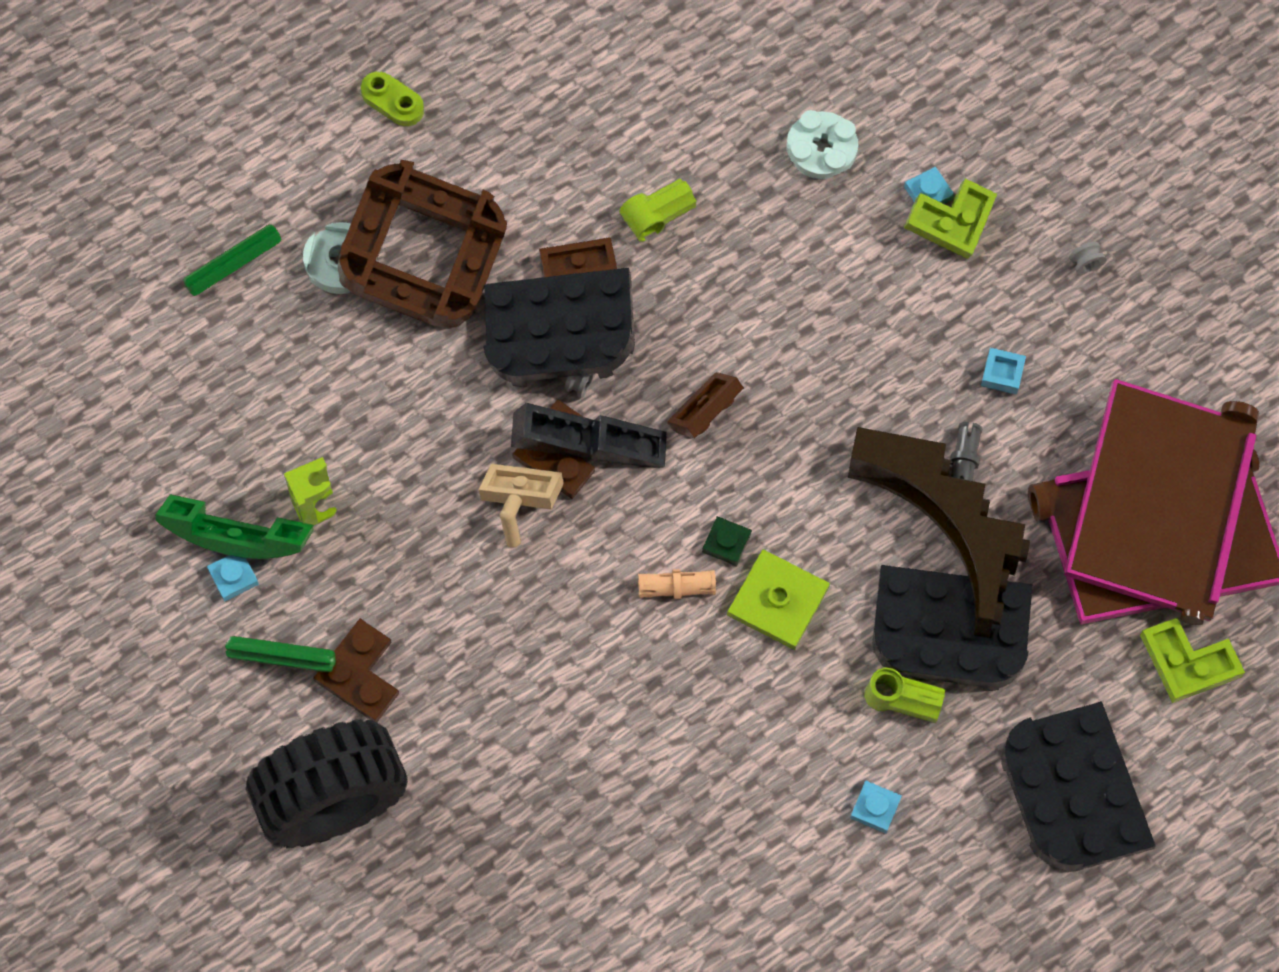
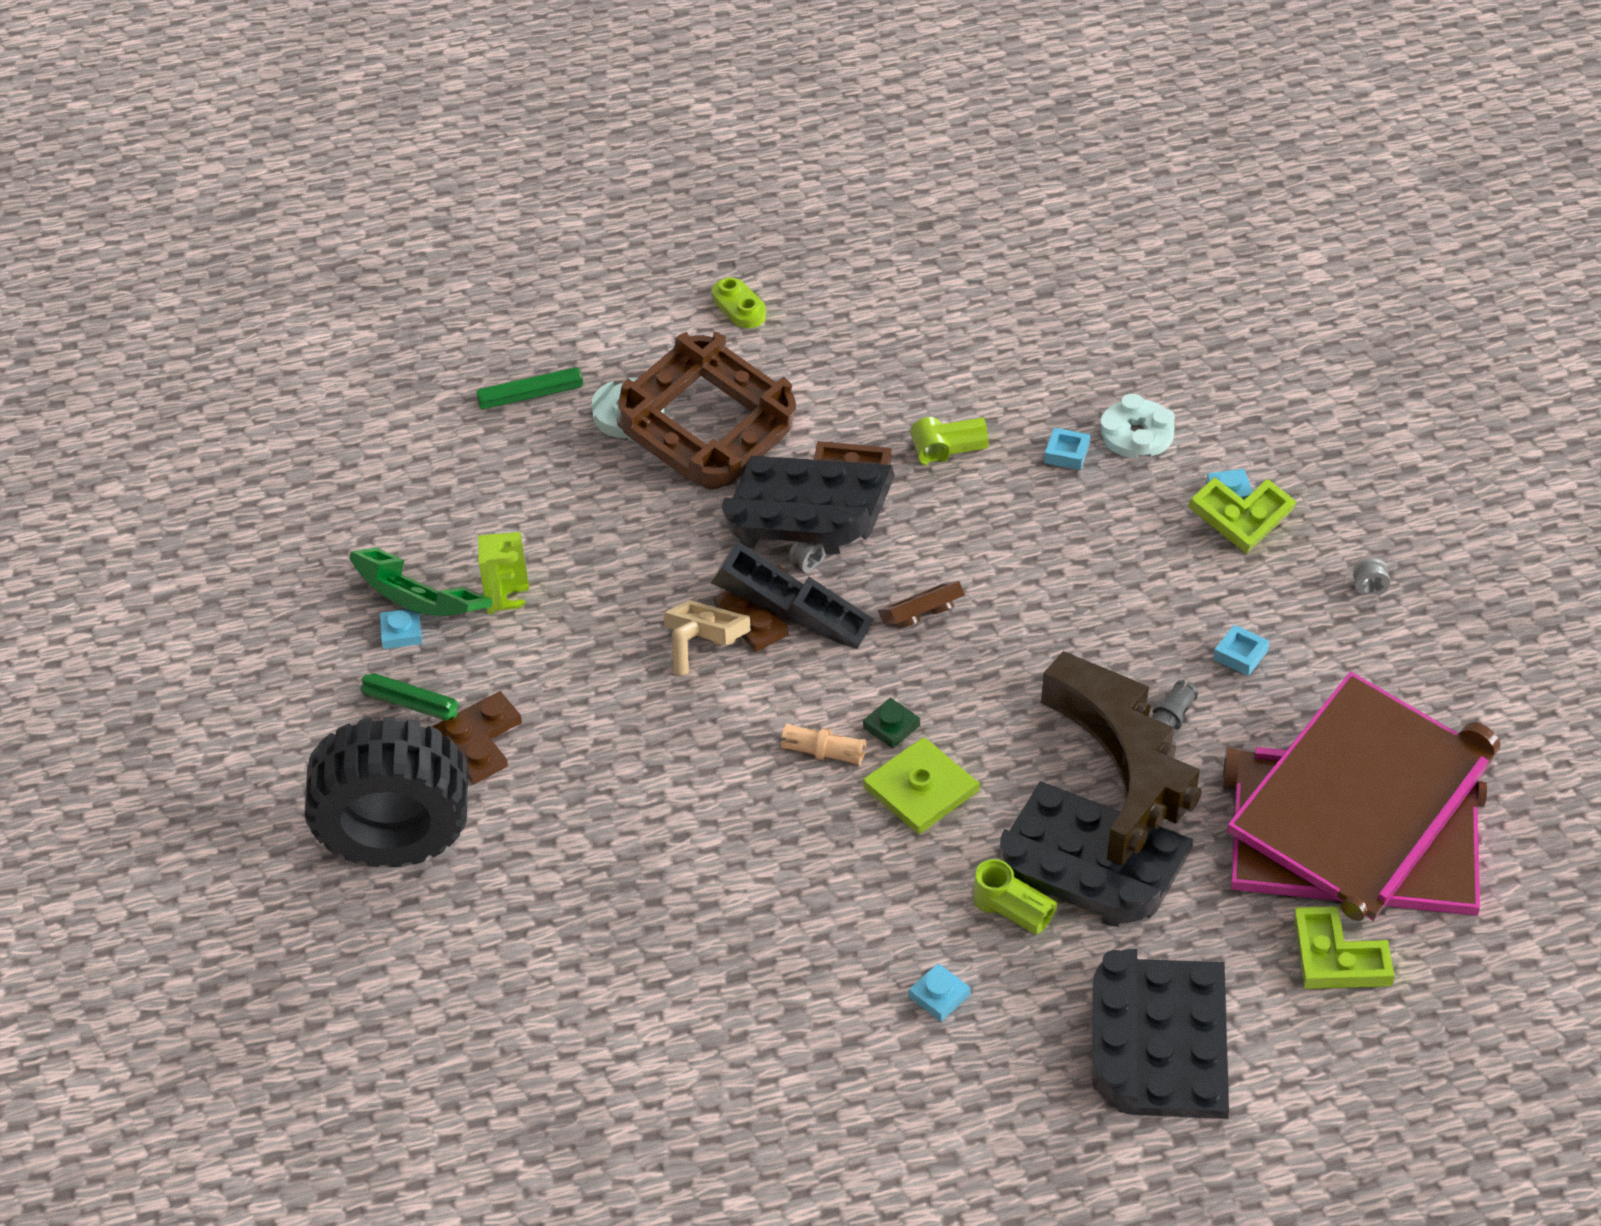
camera: 25 degrees right, 20 degrees down
(769, 189) = (1067, 448): none -> medium azure plate

